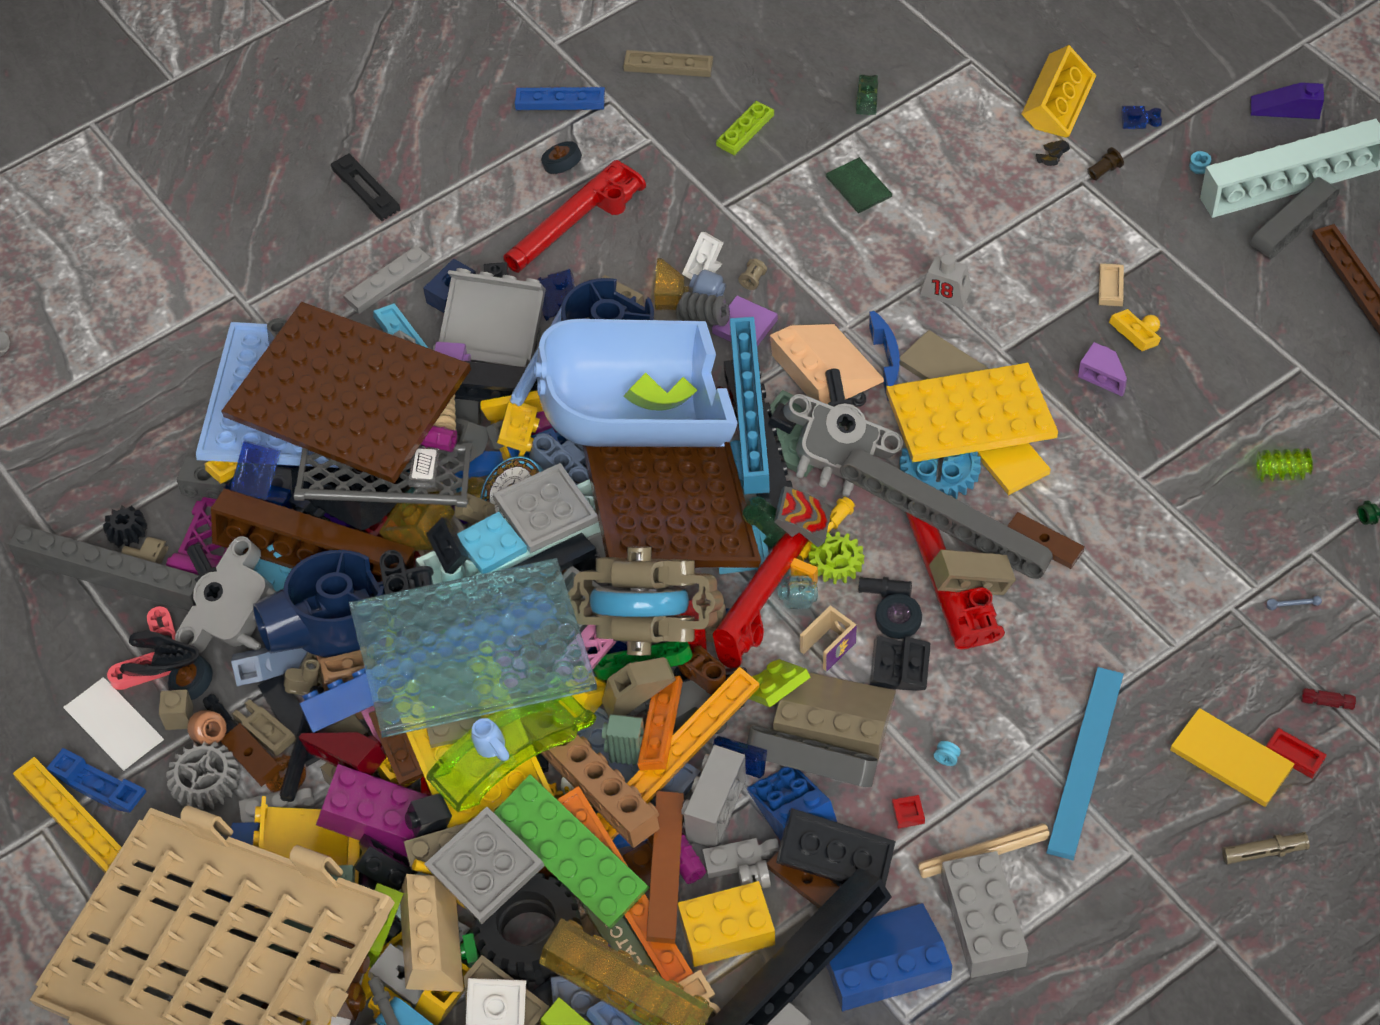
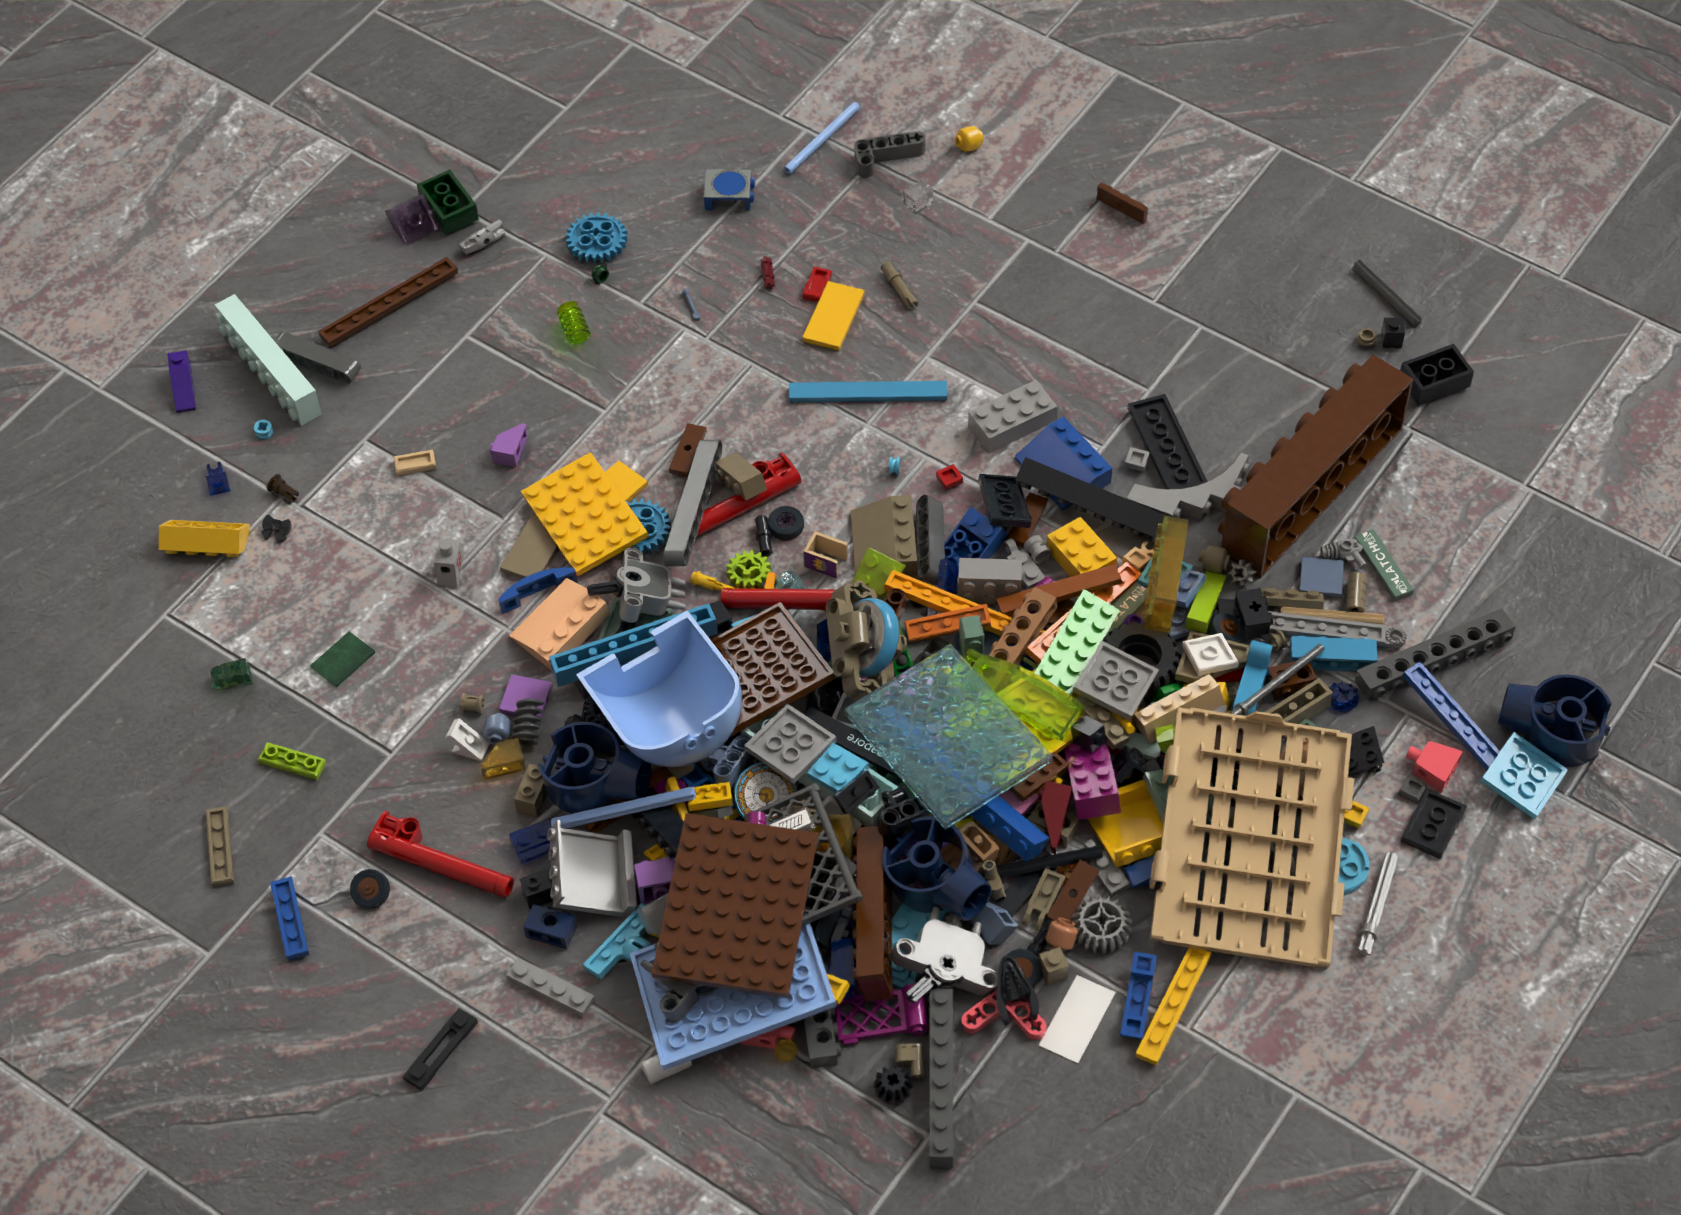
camera: 110 degrees left, 0 degrees up
(255, 470) = (834, 952): clear blue plate -> none
(489, 739) = (1030, 686): light blue piece -> none
(636, 685) = (922, 635): dark tan slope -> none
(651, 396) = (648, 700): lime brick -> none
(762, 515) = (738, 611): clear green leg -> none
(802, 514) = (726, 588): slope -> none
(900, 663) = (827, 512): black slope -> none
(1001, 845) = (961, 431): tan axle -> none
(1139, 332) = (460, 437): yellow plate -> none

